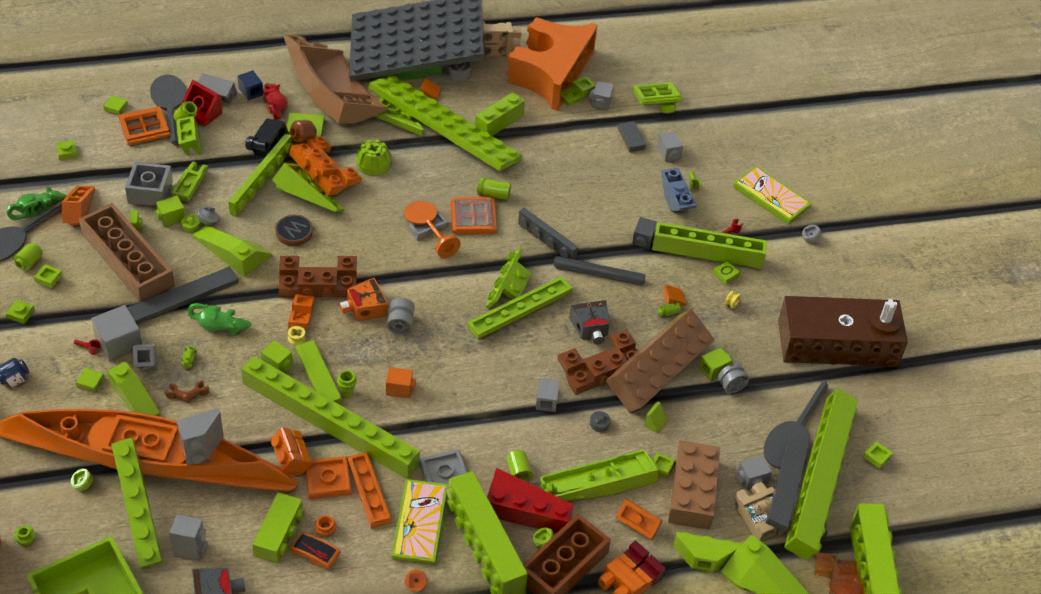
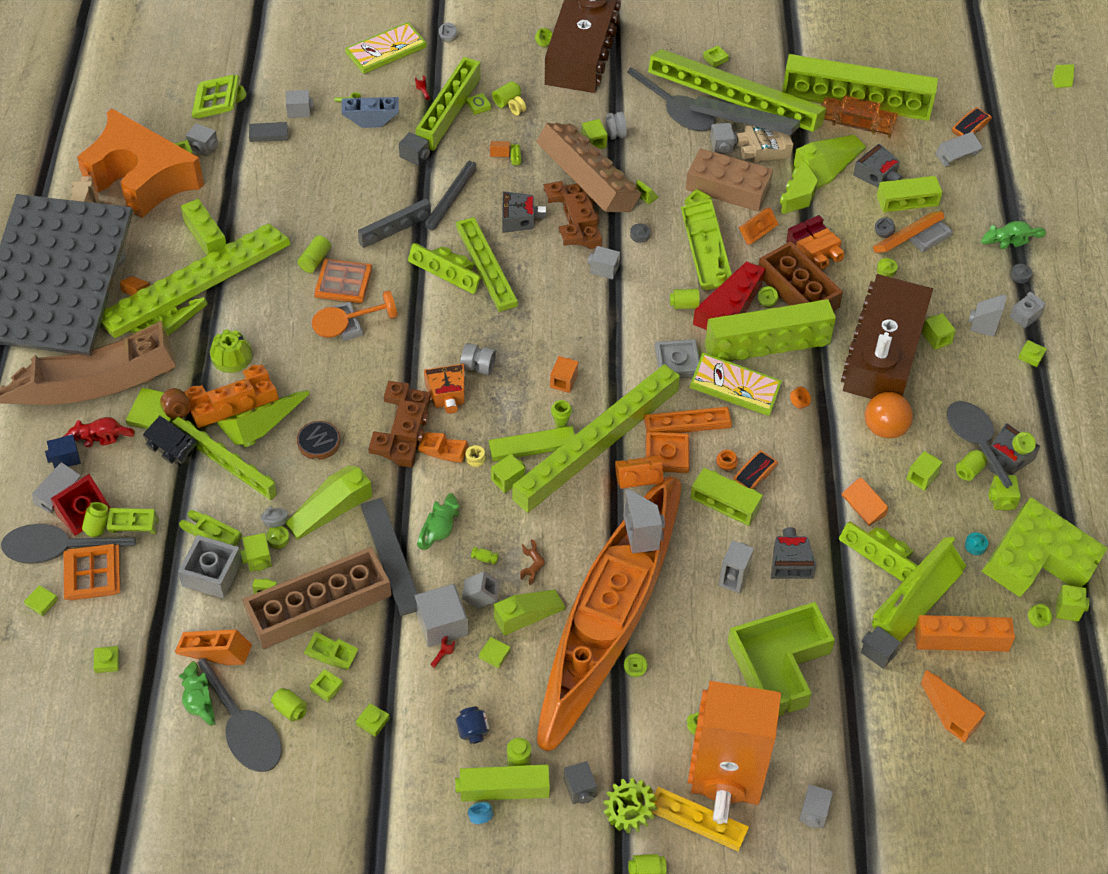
camera: 75 degrees left, 5 degrees up
(83, 274) = (331, 652): none -> lime slope
(137, 503) = (688, 604): lime plate -> none
(747, 289) = (505, 93): none -> lime brick

